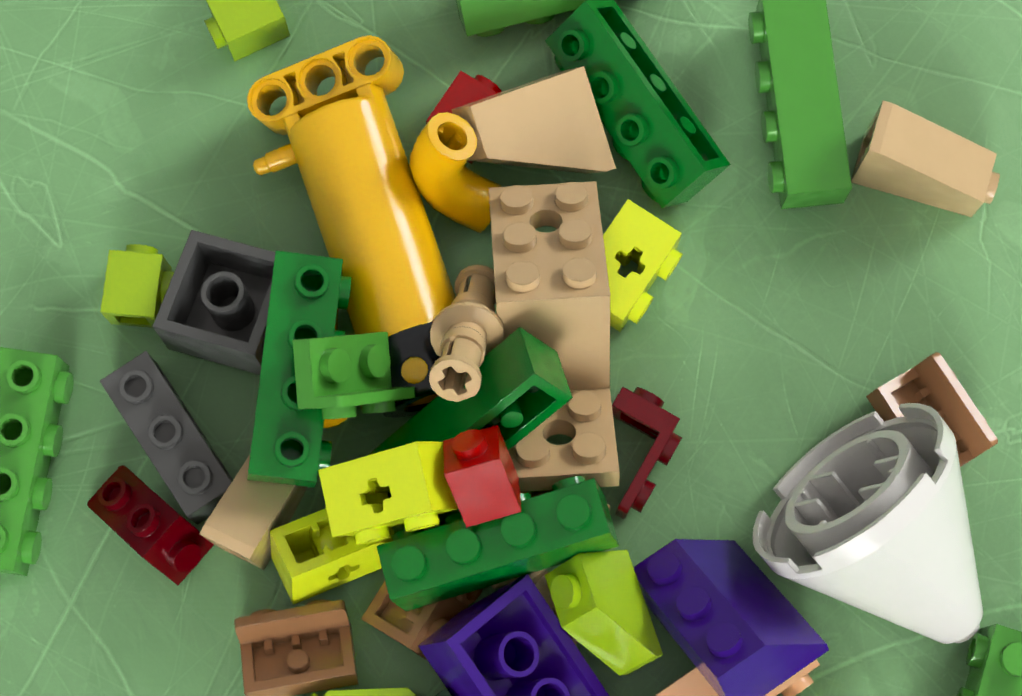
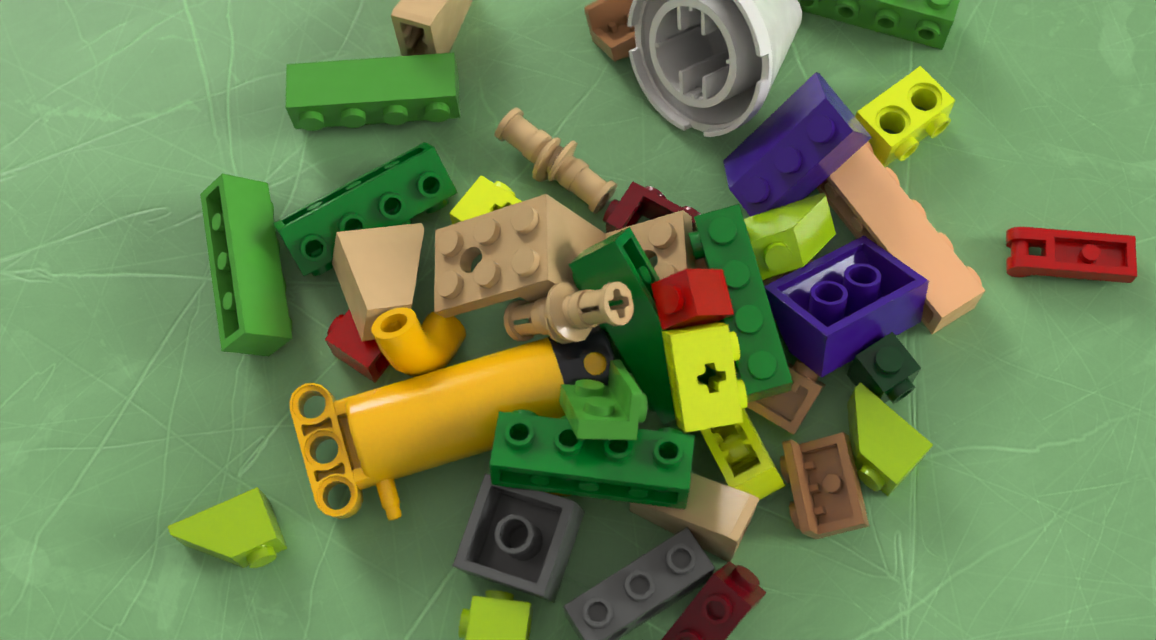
camera: 85 degrees left, 10 degrees down
(714, 324) = (555, 161): none -> tan piece

